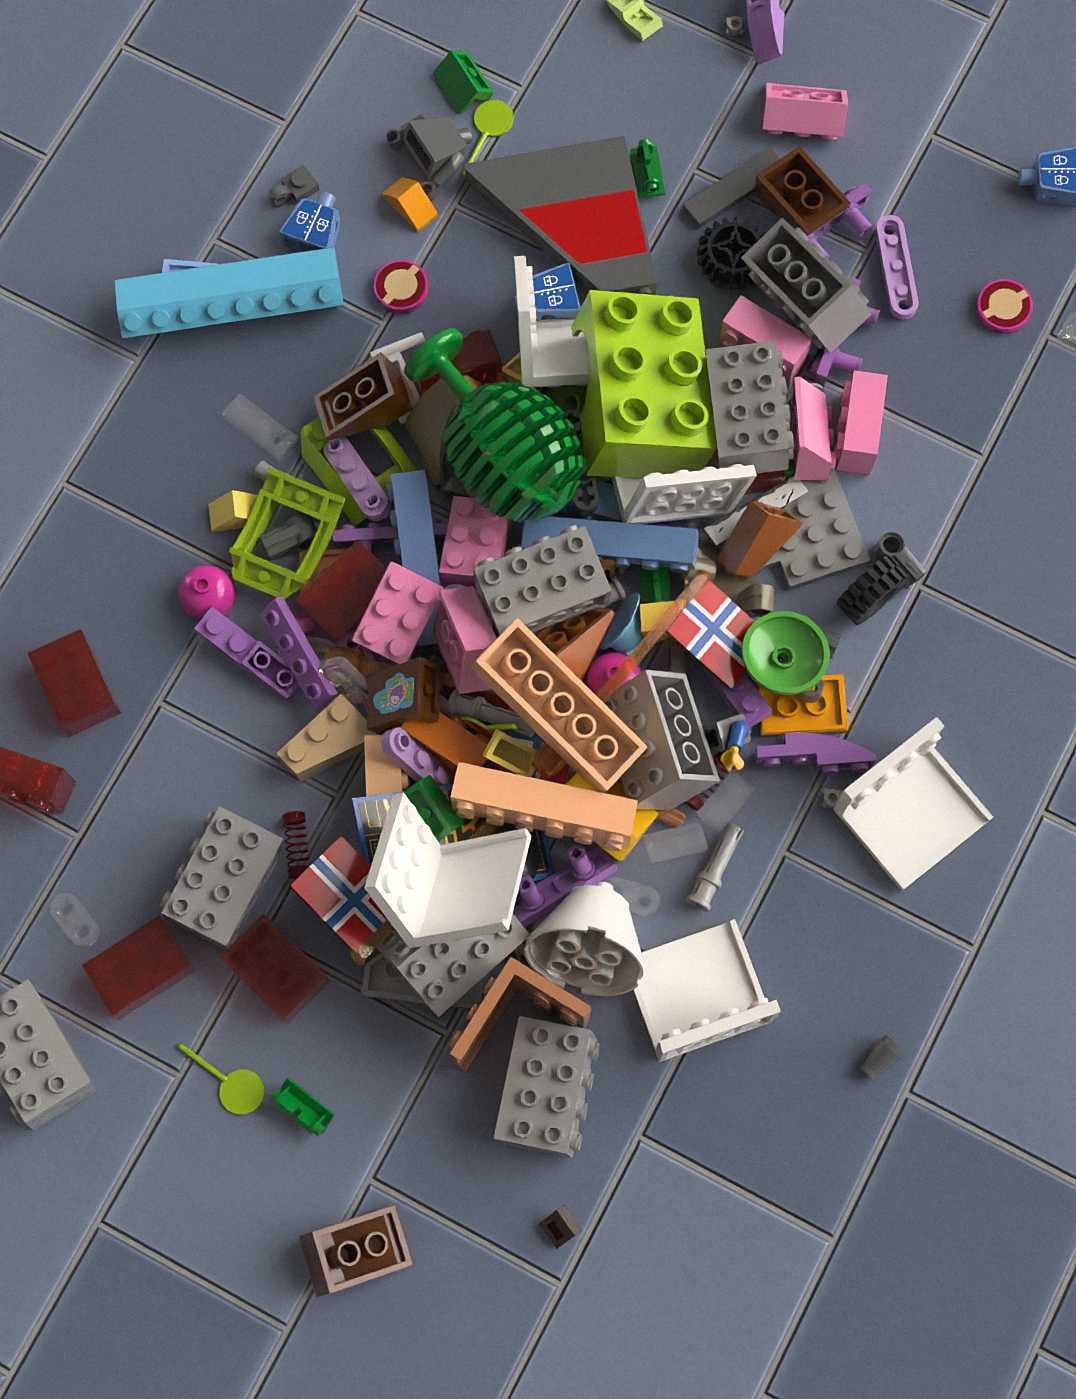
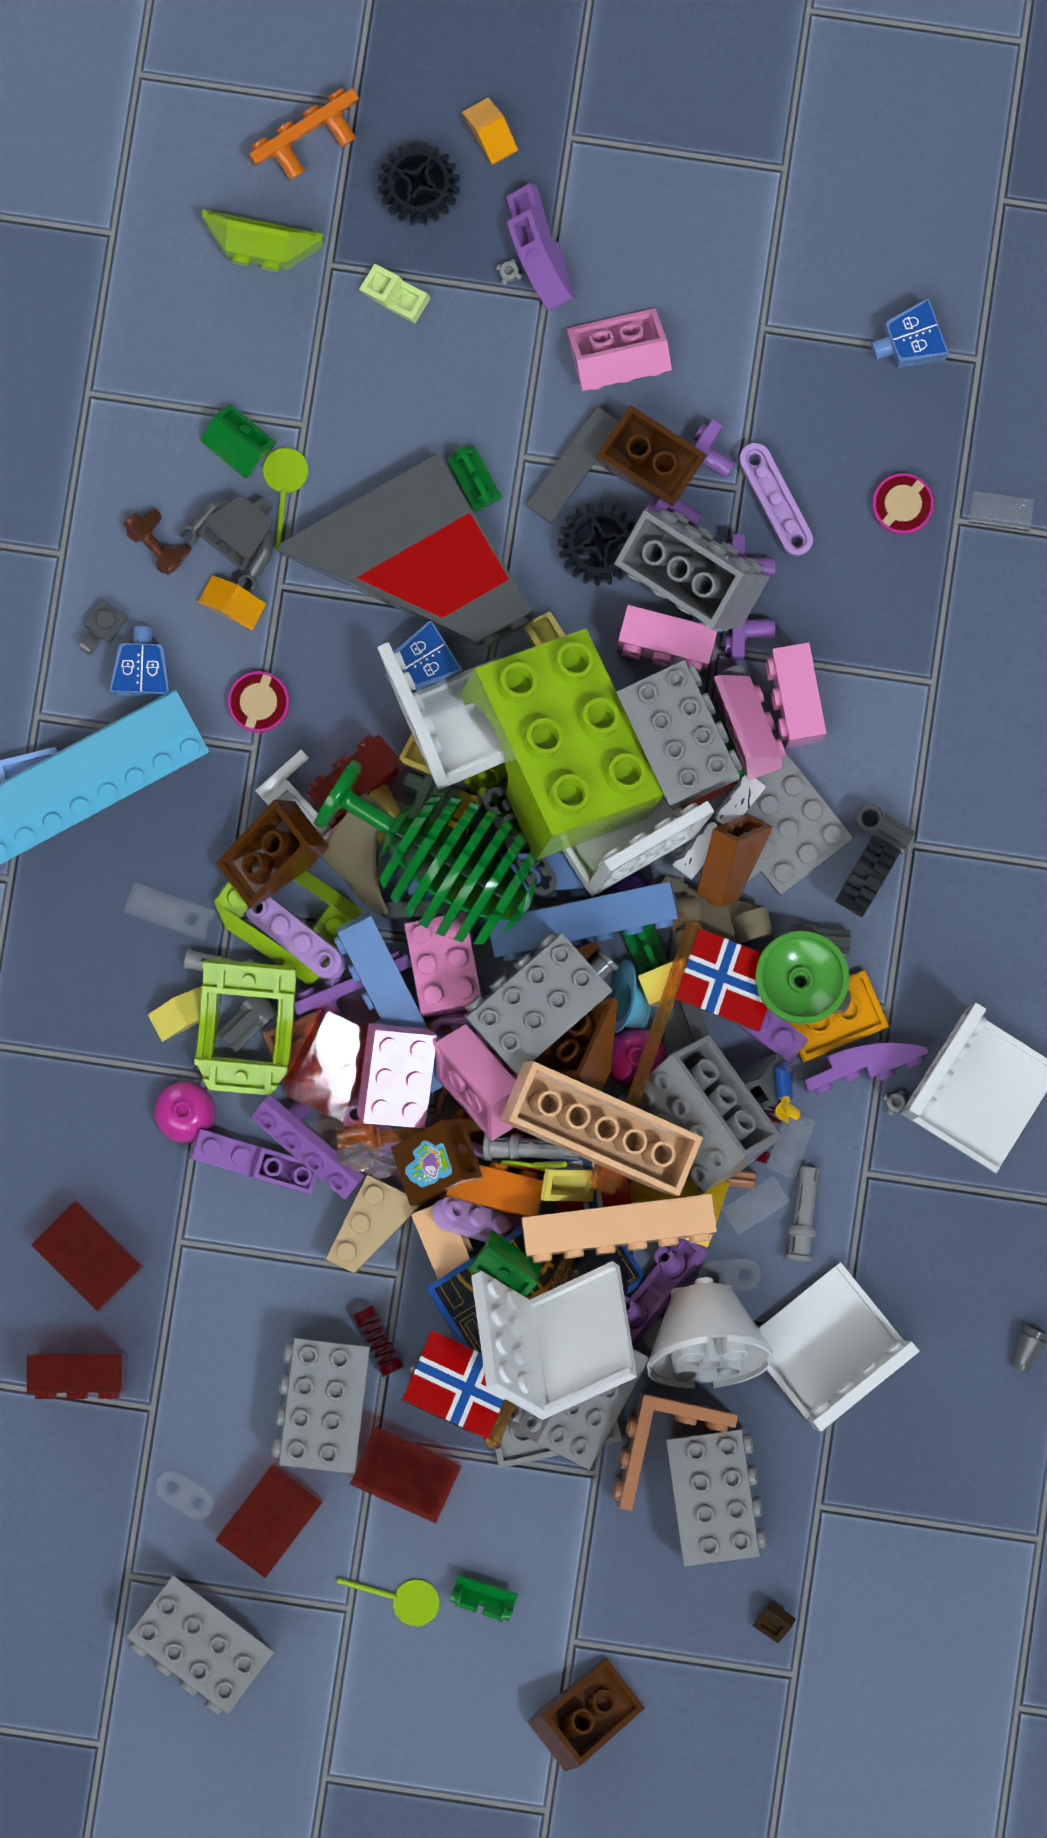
camera: 25 degrees left, 10 degrees up
(357, 121) = (141, 529): none -> copper piece

